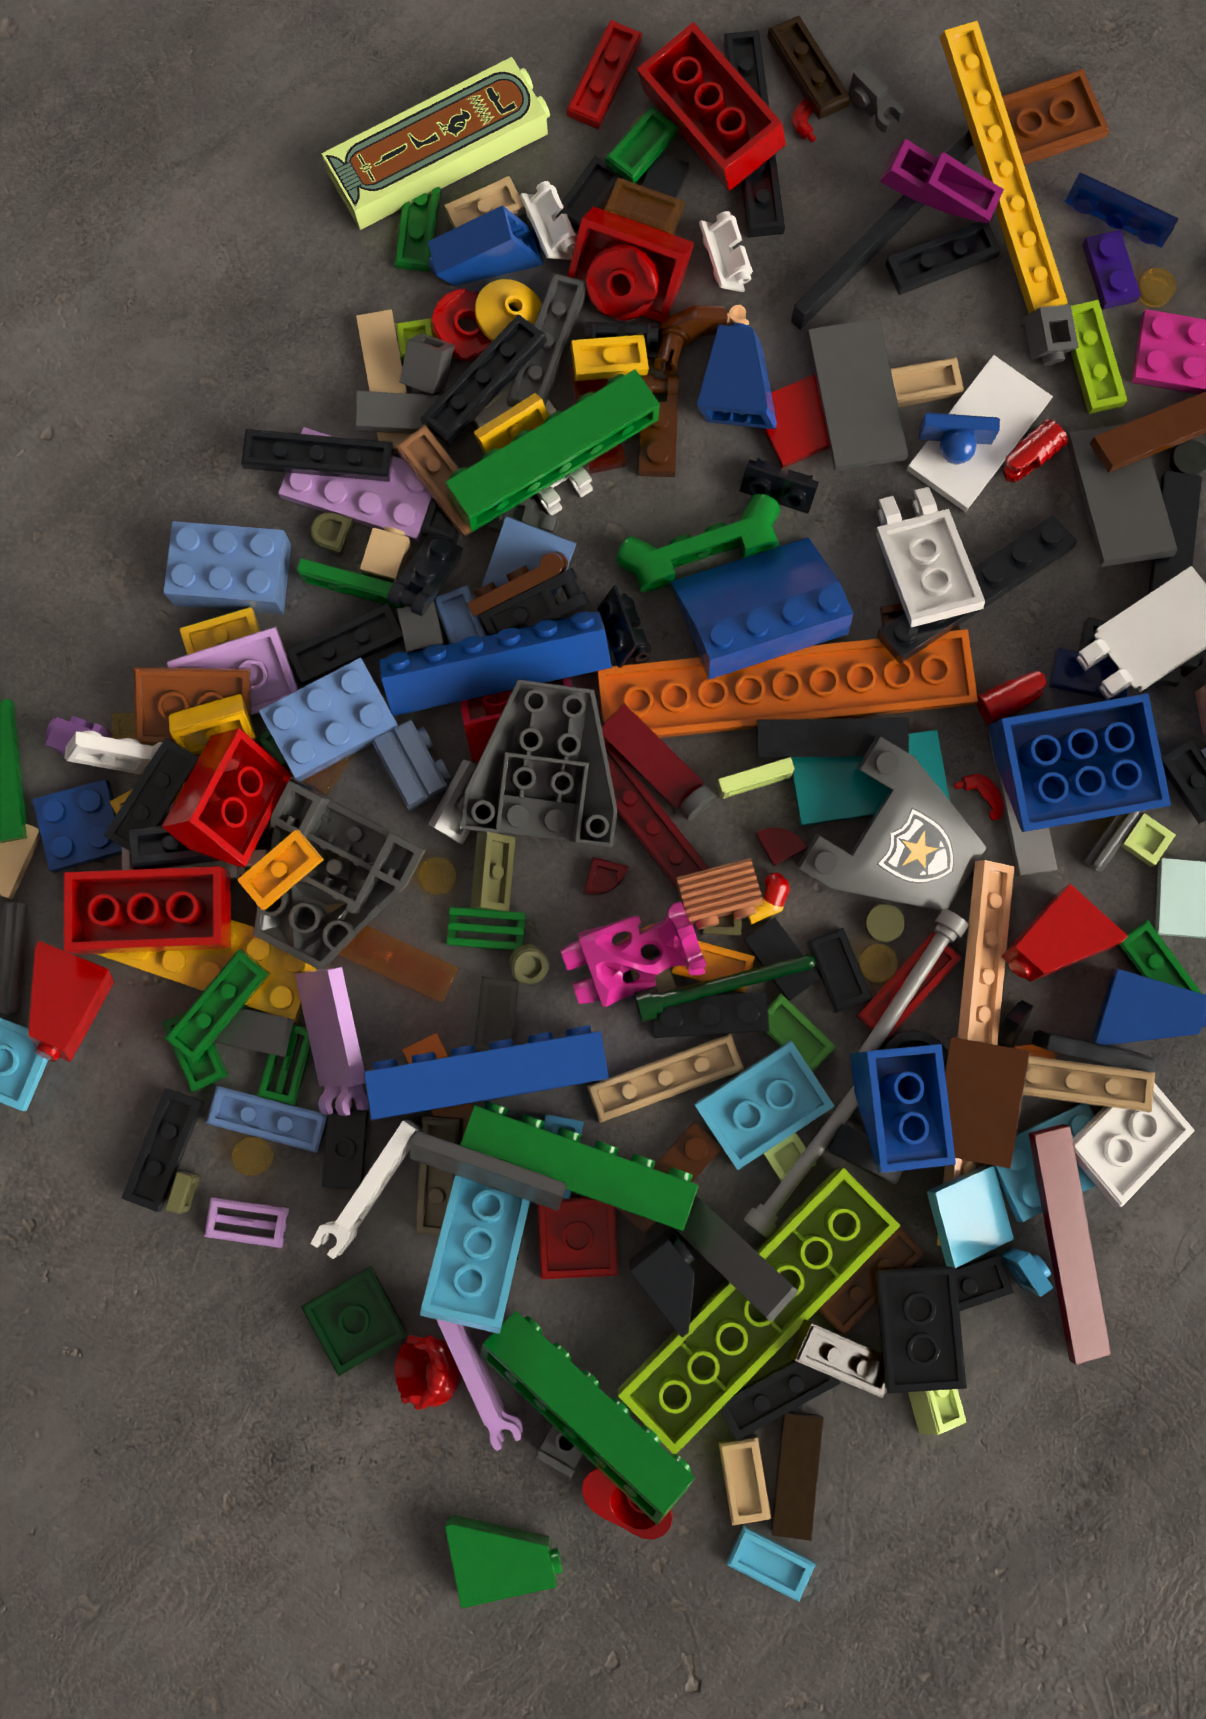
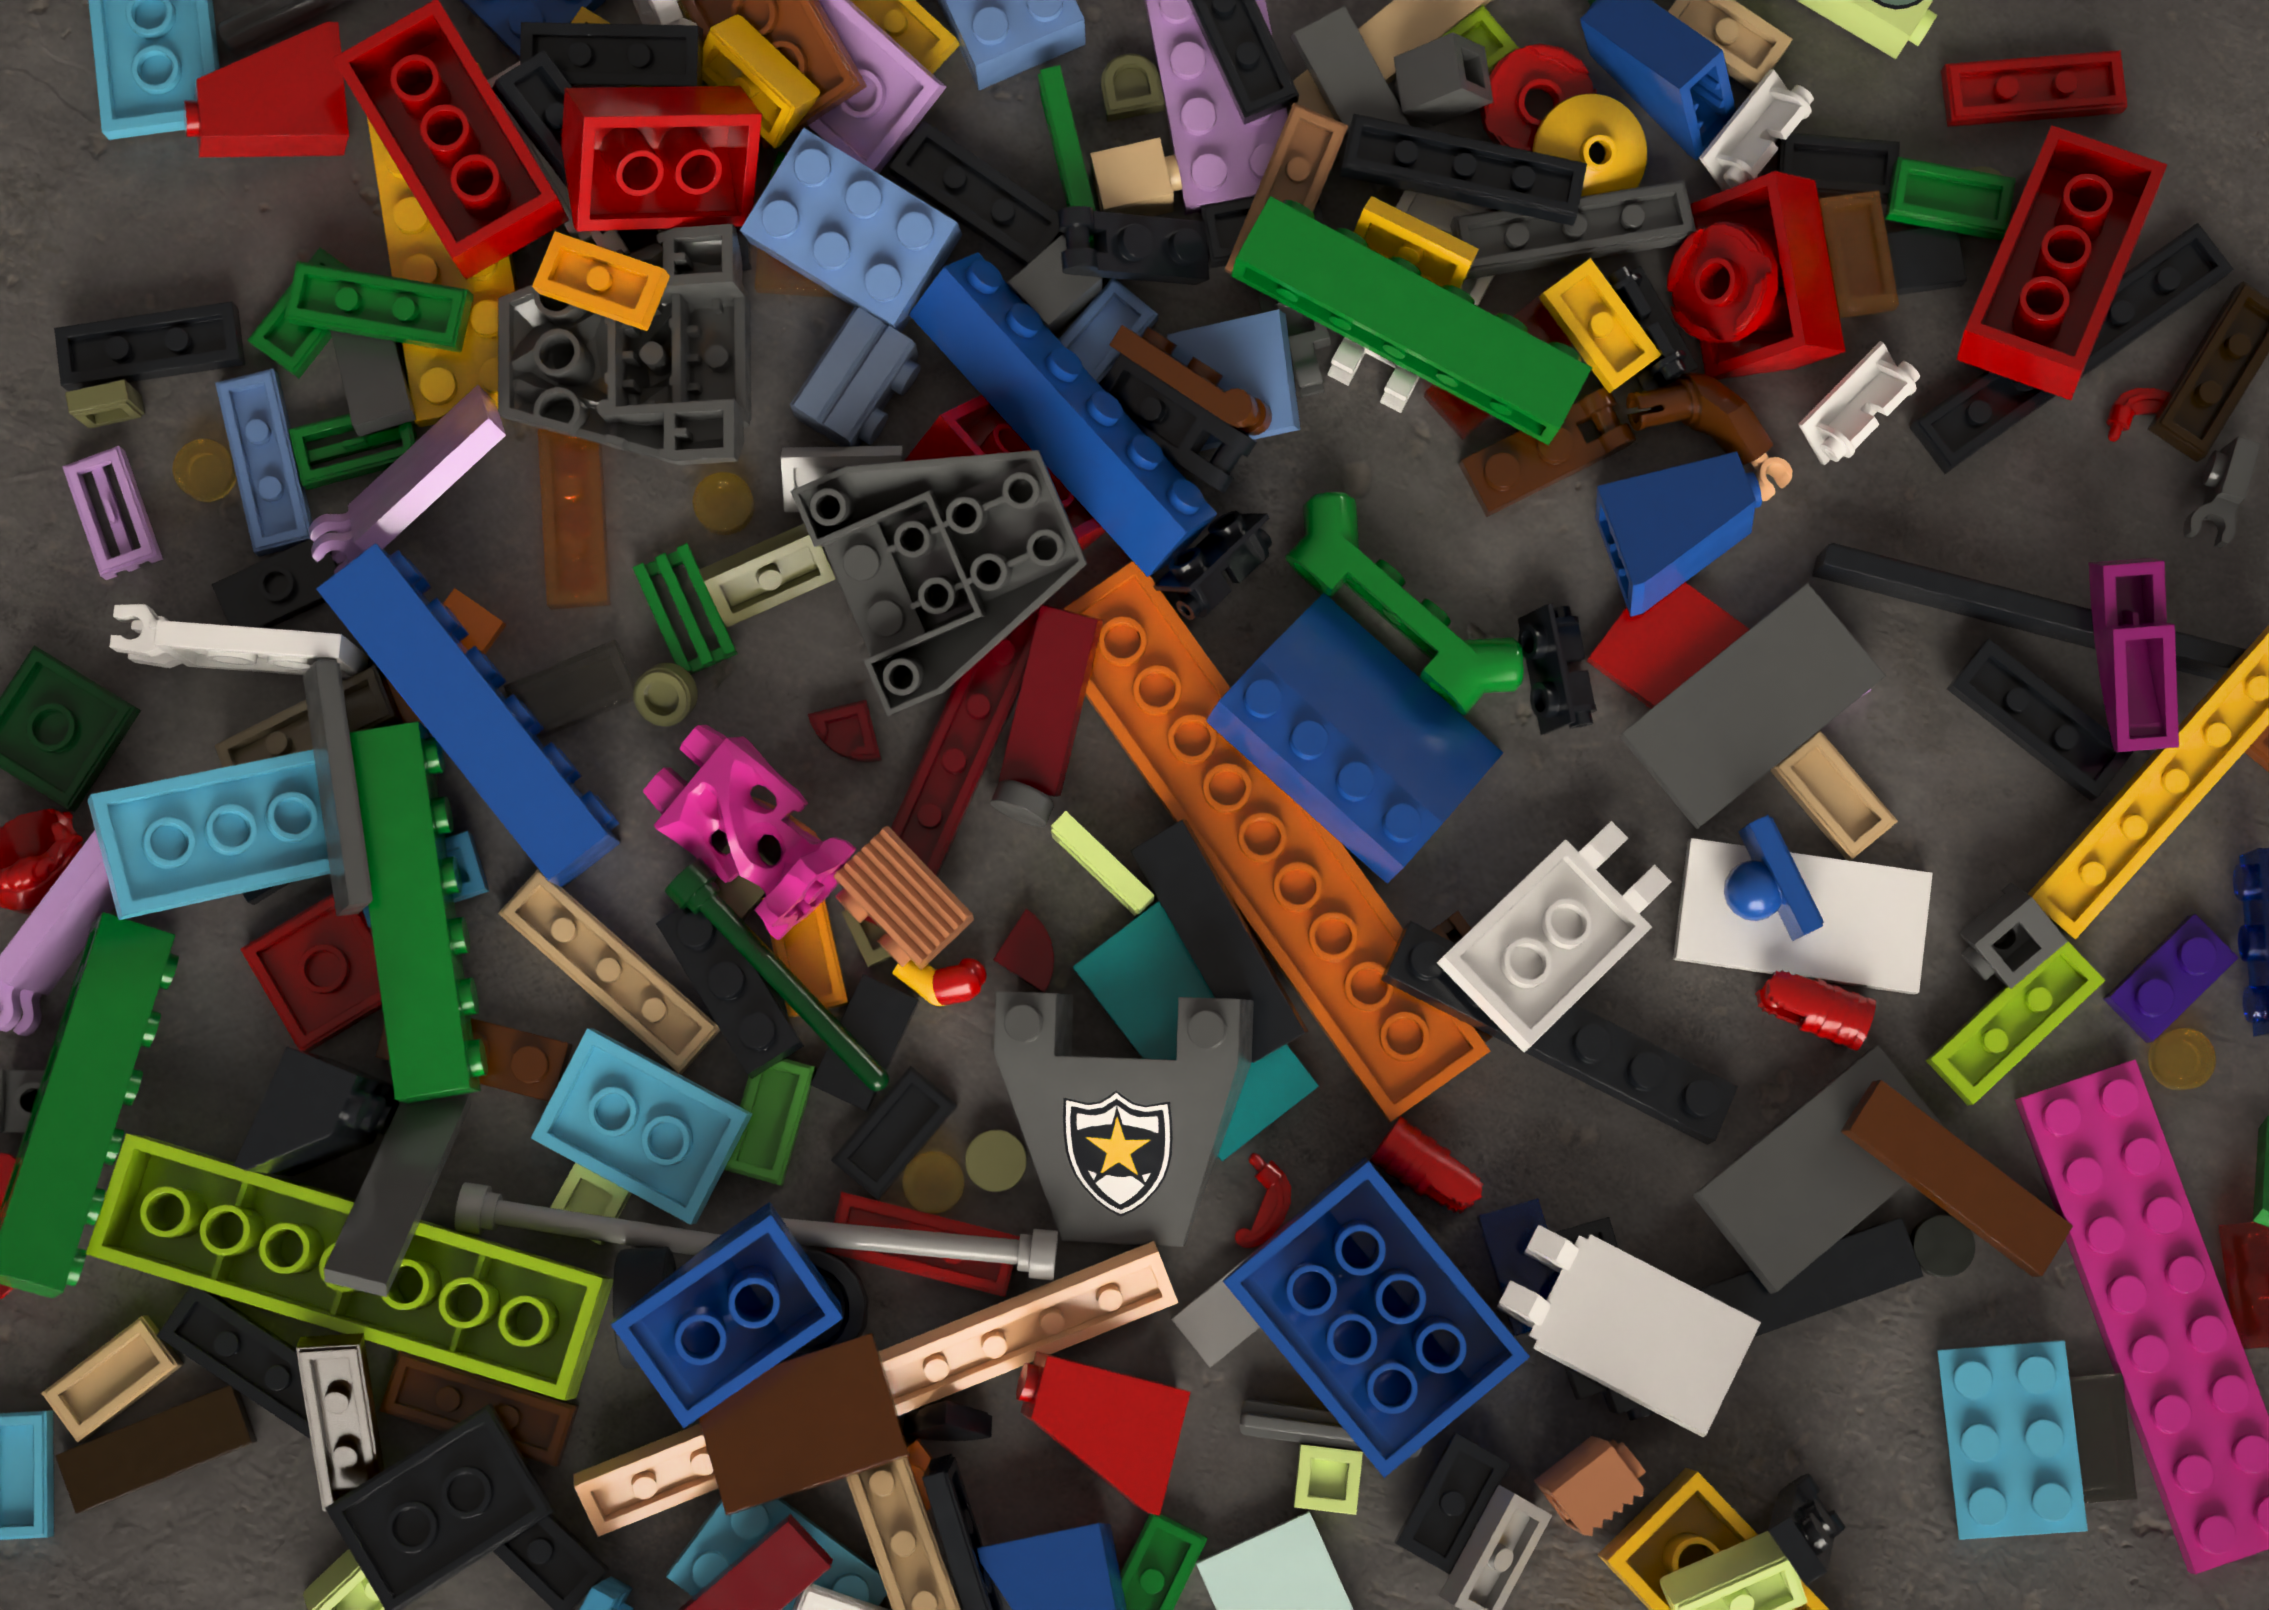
camera: 60 degrees right, 0 degrees up
(970, 1215) = (635, 1497): medium azure tile -> none

